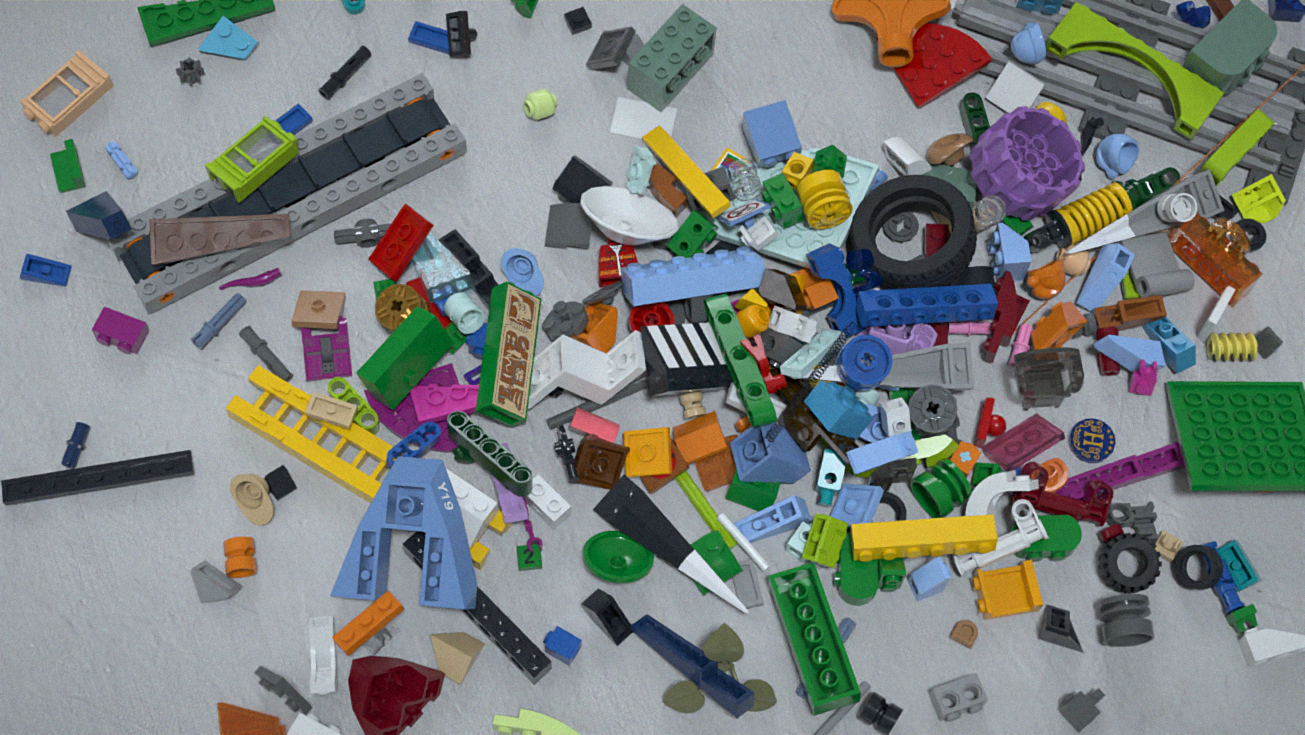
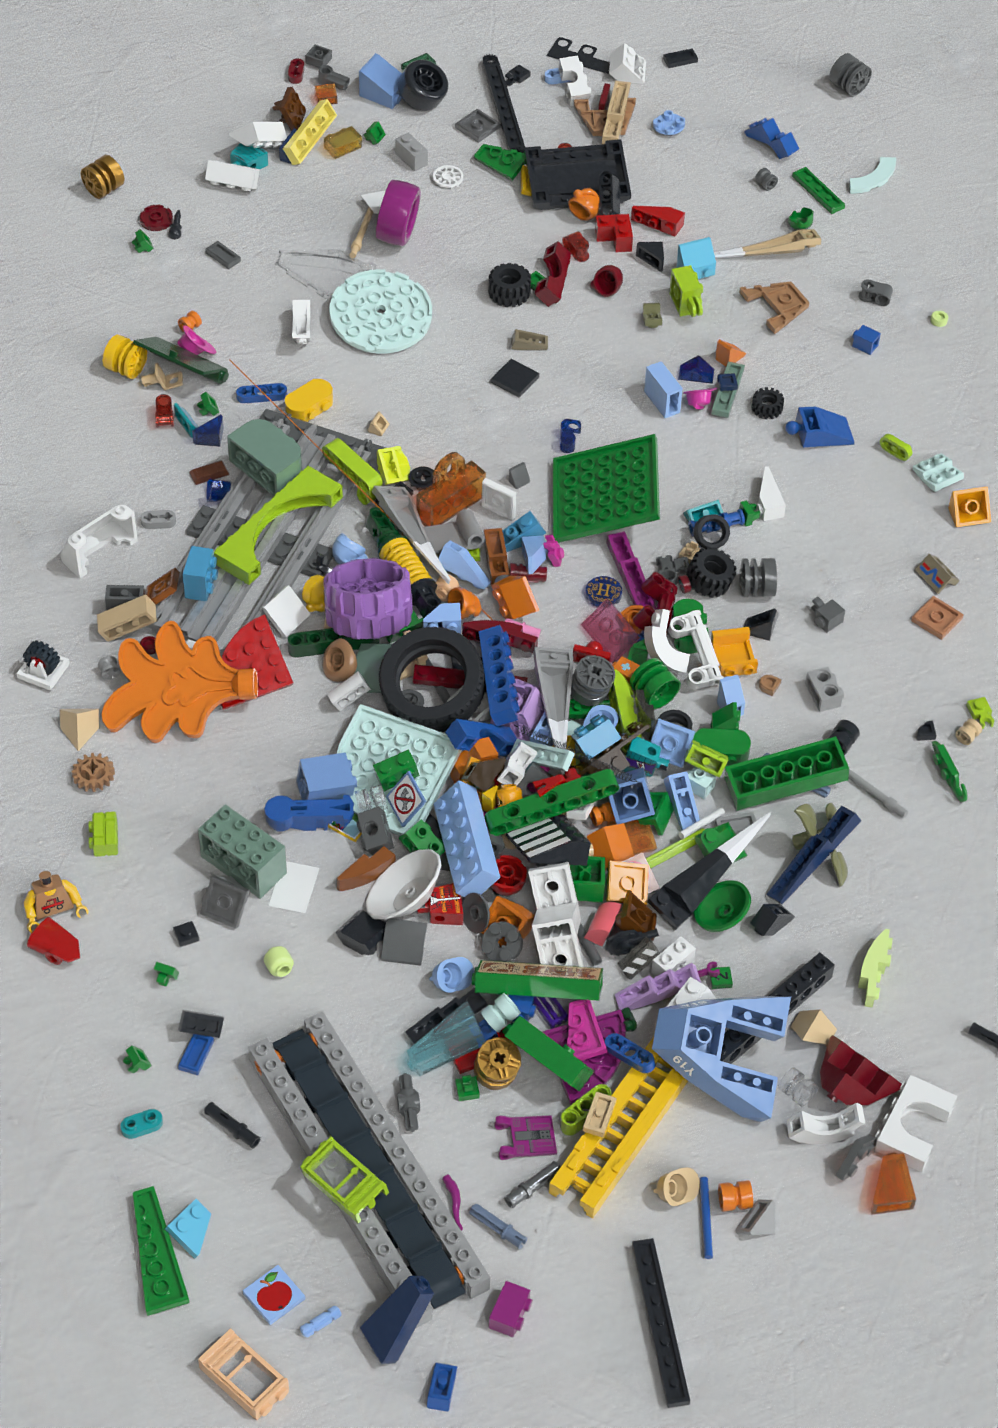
camera: 85 degrees left, 15 degrees down
(67, 168) = (327, 1369): green panel -> none
(75, 445) = (627, 1344): dark blue axle -> none
(154, 118) = (274, 1294): none -> tile
(190, 71) = (224, 1260): dark grey gear -> none
(200, 236) = (427, 1223): wing -> none
(221, 530) = (706, 1218): none -> blue bar
(280, 482) = (658, 1167): black slope -> none
(295, 119) = (286, 1174): blue tile -> none
(318, 309) = (489, 1138): medium nougat plate -> none
(368, 623) = (797, 1084): orange plate -> none
(400, 242) = (426, 1065): red tile -> none
(490, 453) = (635, 1000): dark green beam -> none
(546, 463) = (638, 958): none -> clear smoke tile
(562, 645) = (800, 950): blue brick -> none
(639, 170) = (355, 880): light aqua piece -> none
(647, 410) = (589, 879): none -> green brick
(686, 171) = (359, 843): yellow tile -> none
(728, 99) = (307, 815): none -> blue piece
(759, 234) = (428, 788): white bracket -> none
(797, 164) = (362, 754): yellow brick -> none
(824, 199) = (402, 733): yellow wheel -> none
(830, 159) = (363, 733): green brick -> none
(856, 262) = (464, 711): clear blue leg -> none
(873, 353) = (557, 713): blue wheel -> none
(882, 452) = (633, 705): light blue slope -> none
(895, 416) = (599, 702): white brick -> none
(923, 537) = (703, 691): yellow brick -> none
(988, 212) = (414, 620): clear wheel -> none
(1029, 44) = (250, 587): light blue piece -> none
(1040, 375) = (563, 610): clear smoke piece -> none
(1177, 207) = (411, 506): white wheel -> none
(1232, 345) = (525, 494): light yellow piece -> none

